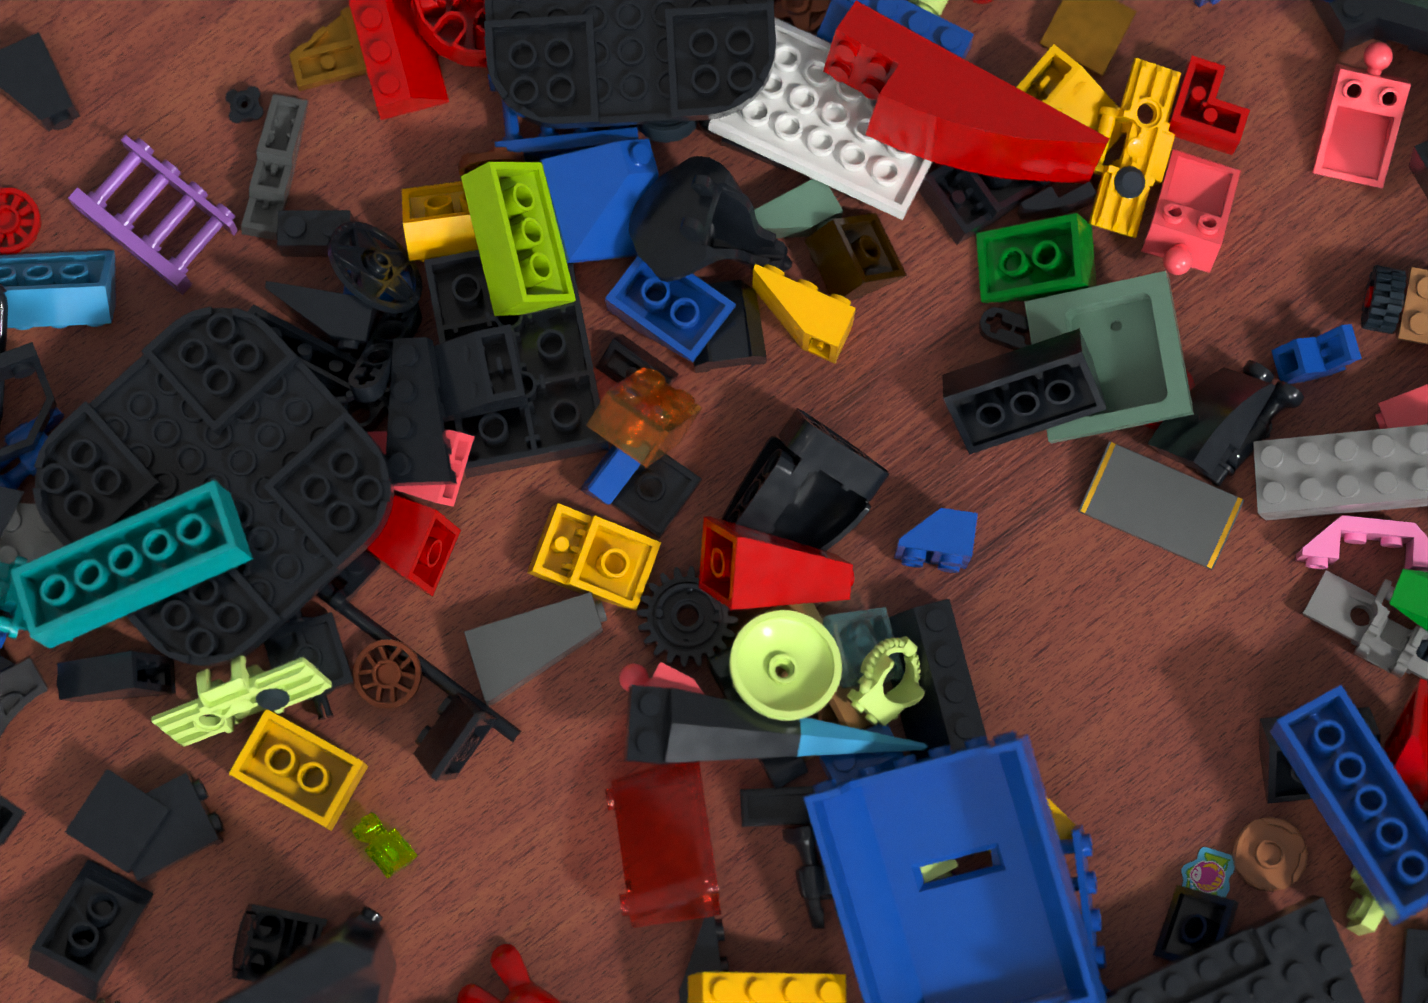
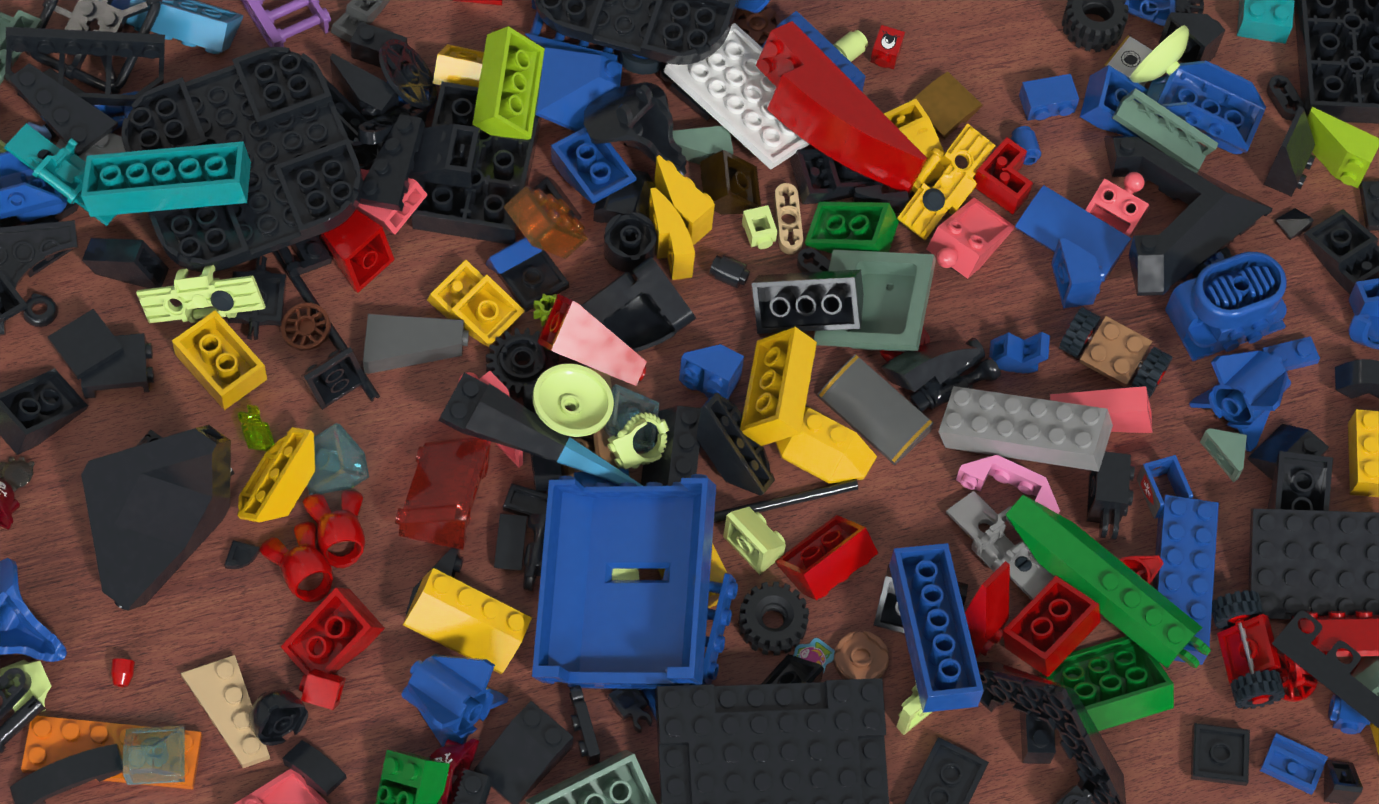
camera: 15 degrees right, 15 degrees down
(47, 788) = (43, 319): none -> black piece
(442, 907) = (279, 478): none -> yellow wedge
(502, 852) = (338, 462): none -> clear light blue slope
(552, 944) = (338, 525): none -> red piece
(683, 522) = (544, 307): none -> lime gear
(743, 381) = (629, 241): none -> black brick
(772, 871) = (510, 542): none -> black slope
(809, 365) = (672, 236): none -> yellow slope
(902, 382) = (729, 271): none -> black brick
(918, 292) = (759, 227): none -> yellowish green brick
(927, 254) = (782, 227): none -> tan beam
(1009, 636) = (732, 453): none -> black wedge
(1032, 531) = (778, 386): none -> yellow brick
(1080, 749) = (753, 538): none -> yellowish green slope
(1095, 675) = (792, 499): none -> black piece
(1109, 585) = (827, 450): none -> yellow wedge
(1171, 844) = (777, 600): none -> black tyre
(1177, 735) = (827, 557): none -> red slope
(1213, 45) = (1027, 139): none -> blue brick
(1323, 157) = (1056, 217): none -> blue slope
(1349, 218) = (1076, 274): none -> blue slope

